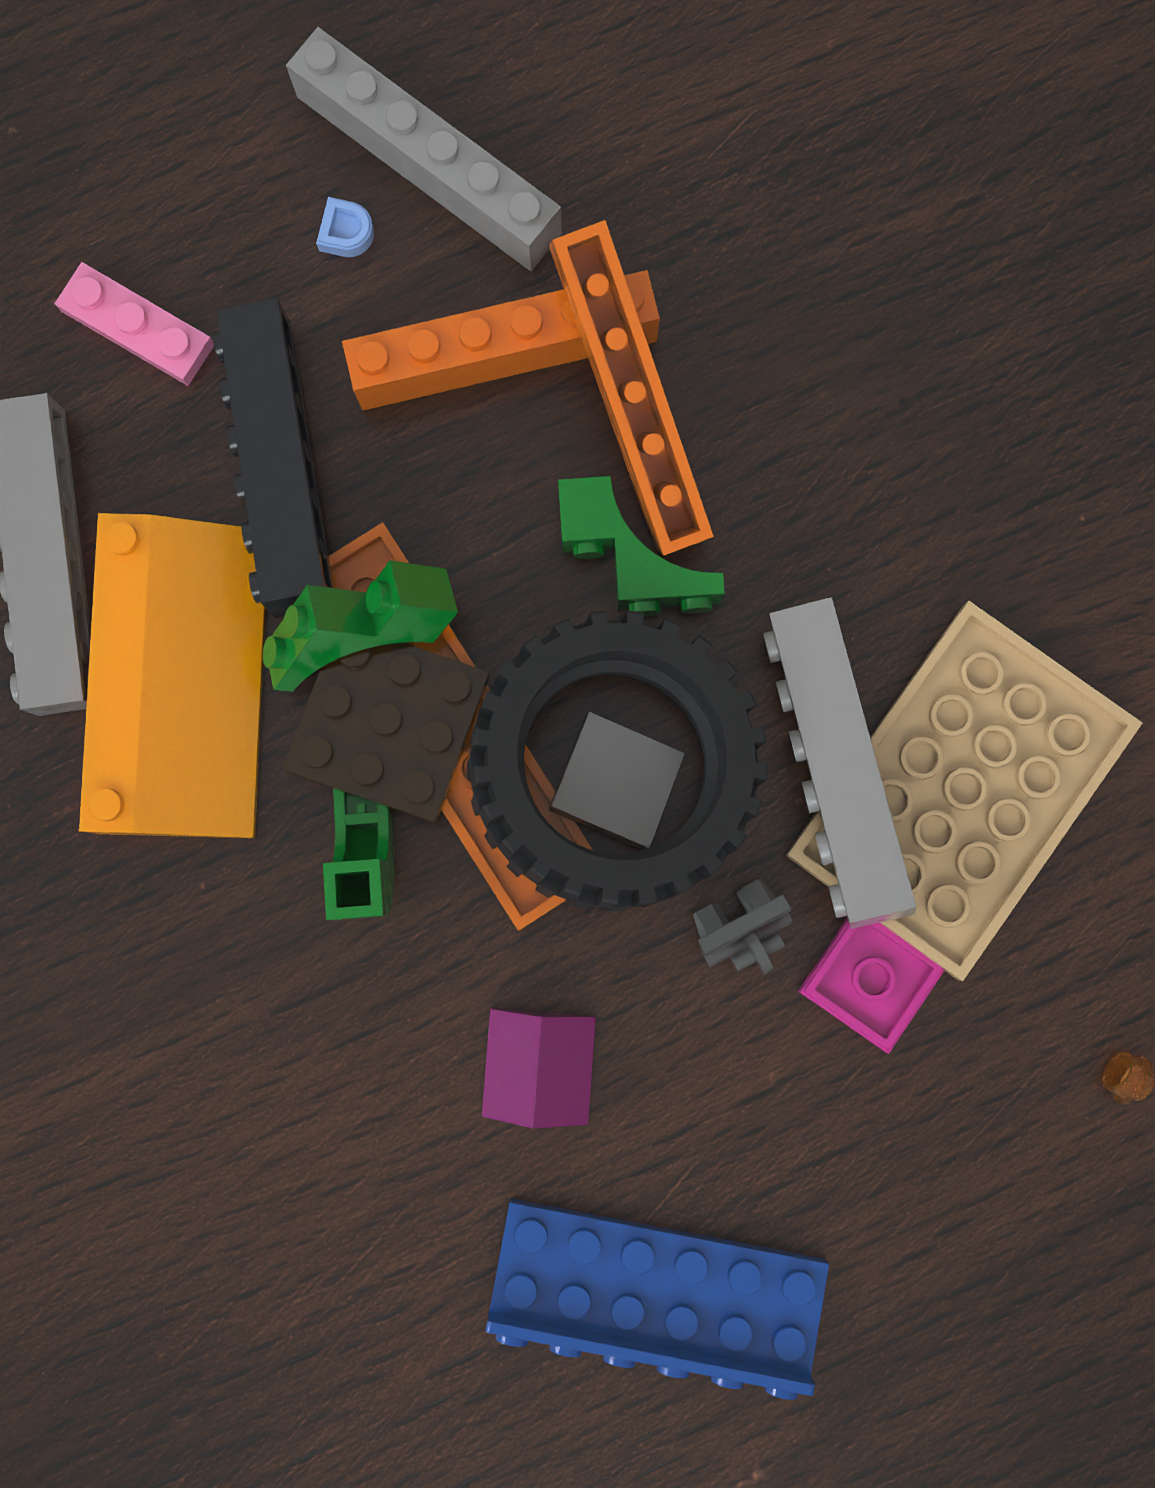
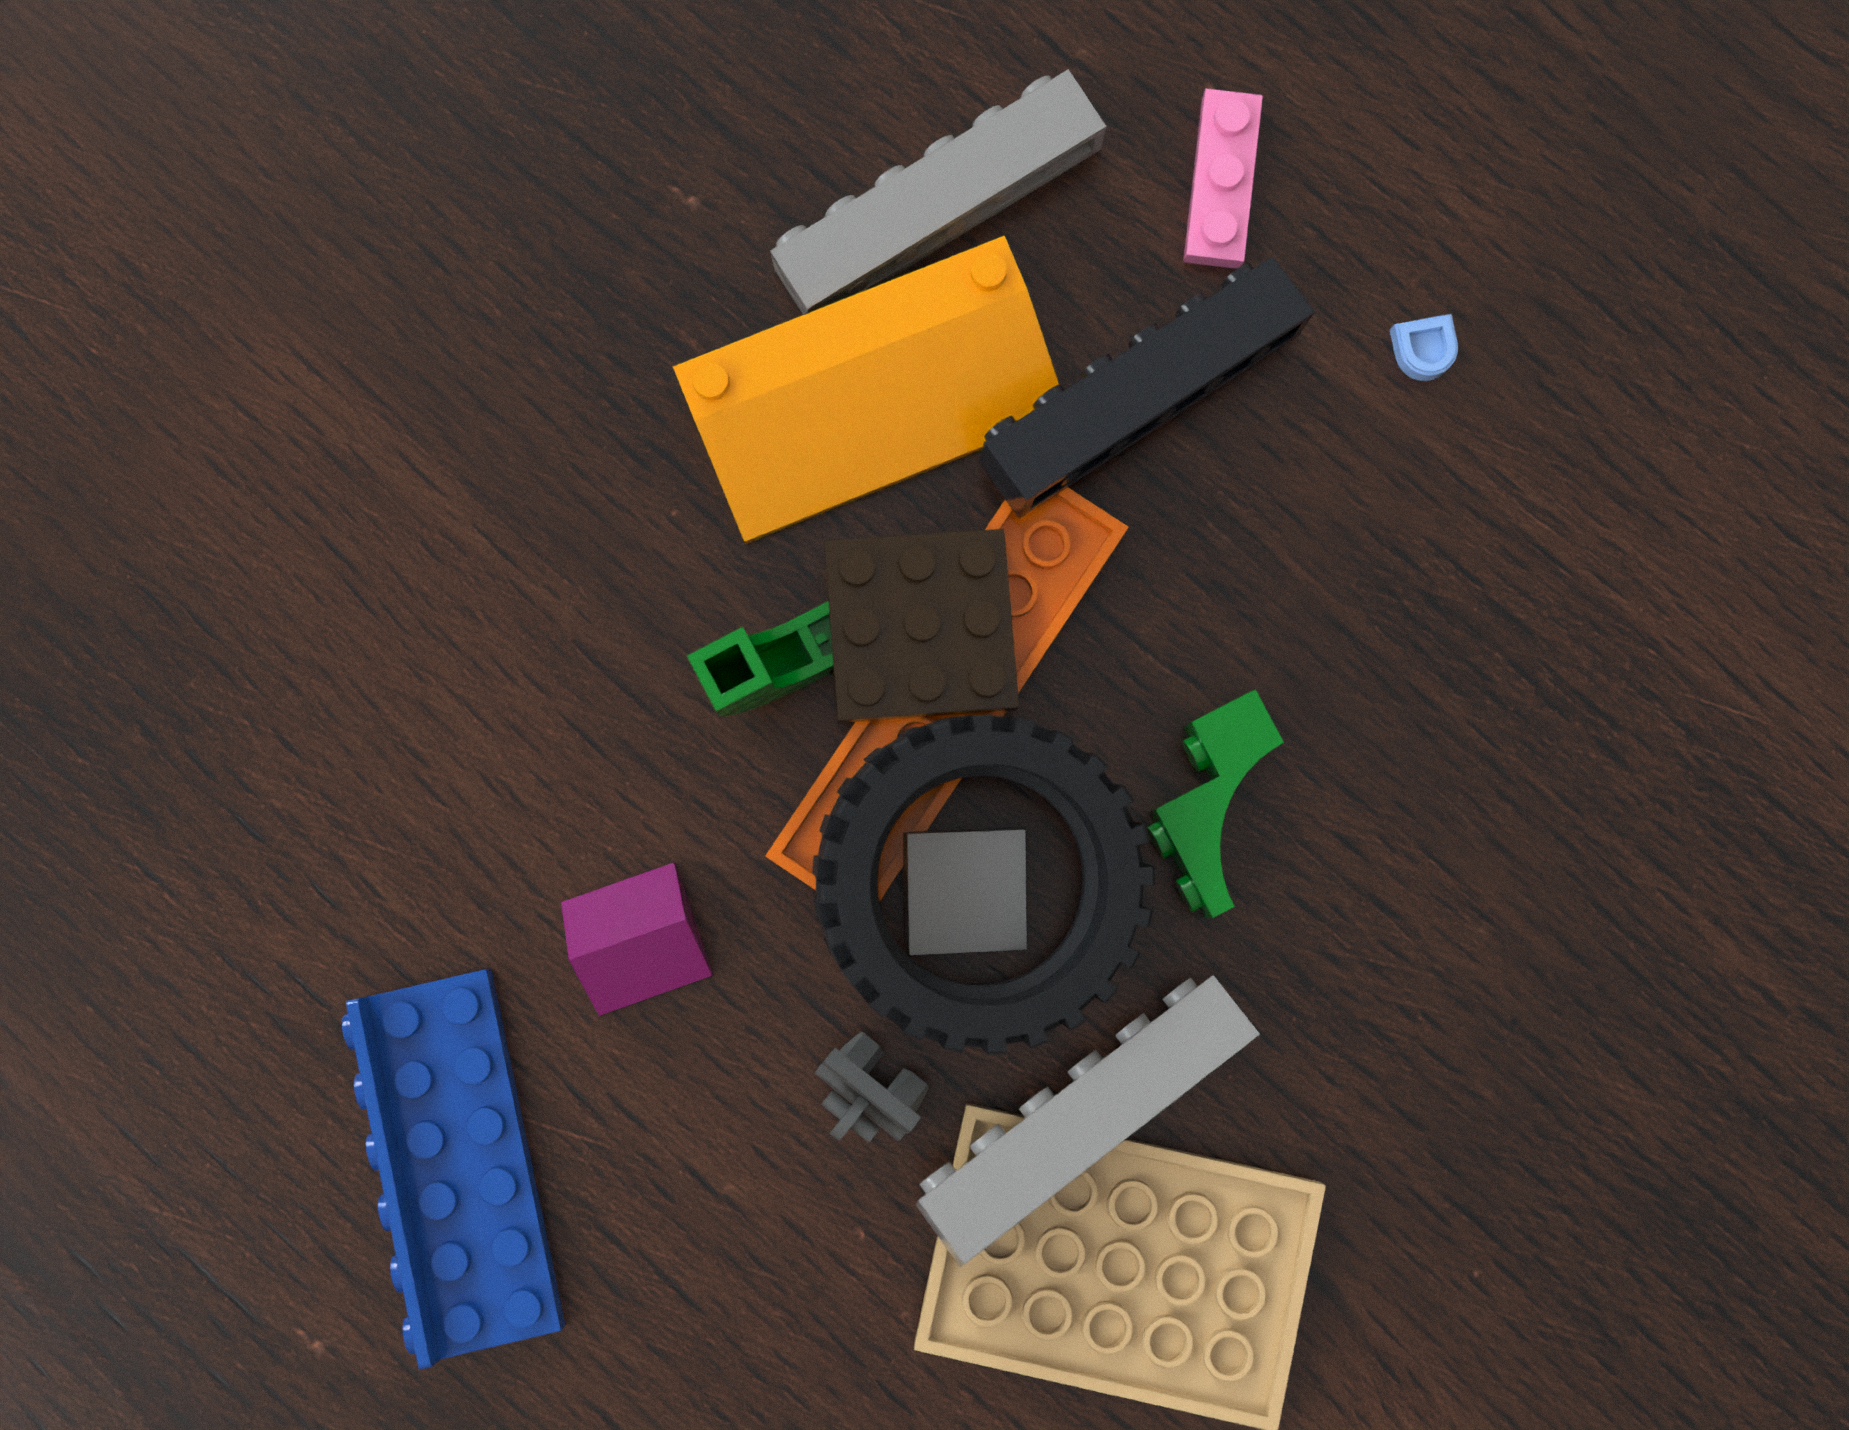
camera: 65 degrees right, 0 degrees up
(329, 623) = (994, 521): green arch -> none
(425, 149) = (1548, 392): light grey brick -> none
(477, 346) = (1380, 566): orange brick -> none
(630, 387) = (1384, 723): orange brick -> none
(871, 982) = (871, 1253): dark pink tile -> none

